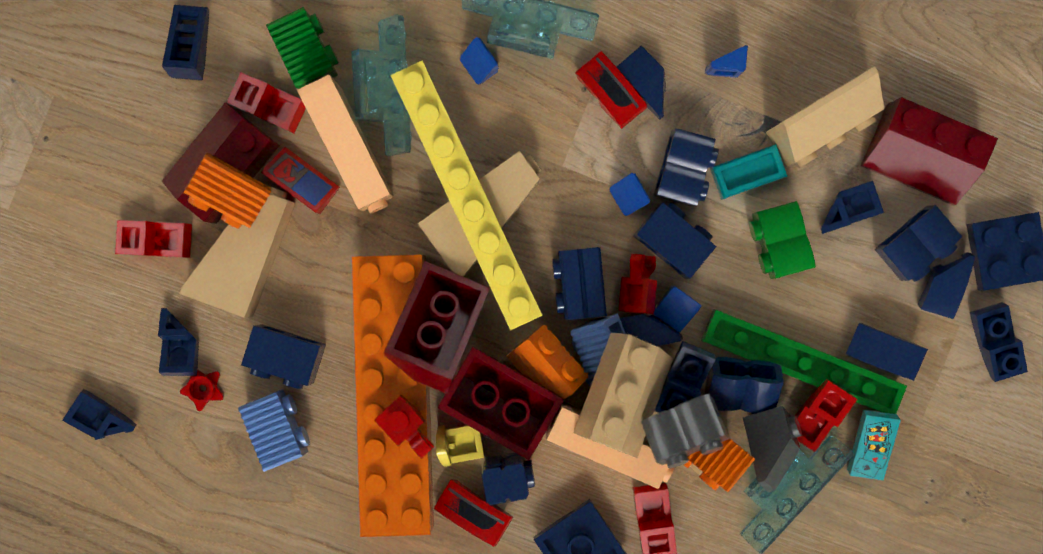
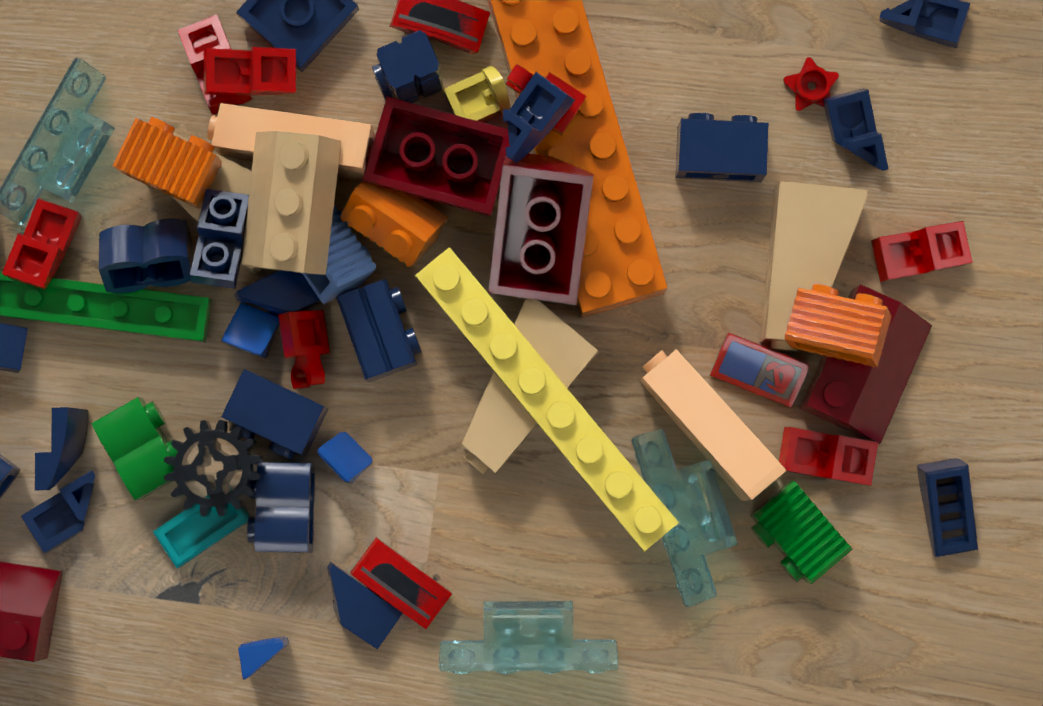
camera: 170 degrees right, 5 degrees down
(274, 429) = (708, 57): medium blue brick -> none
(417, 413) = (534, 115): none -> dark blue slope
(479, 61) = (576, 575): blue slope -> none
(629, 508) = (249, 71): none -> red slope
(685, 430) = (206, 175): dark grey brick -> none
(732, 193) = (210, 447): none -> black gear
(773, 444) = (93, 191): dark grey slope -> none
(829, 119) = (119, 613): tan slope -> none
(836, 257) = (67, 446): none -> dark blue slope

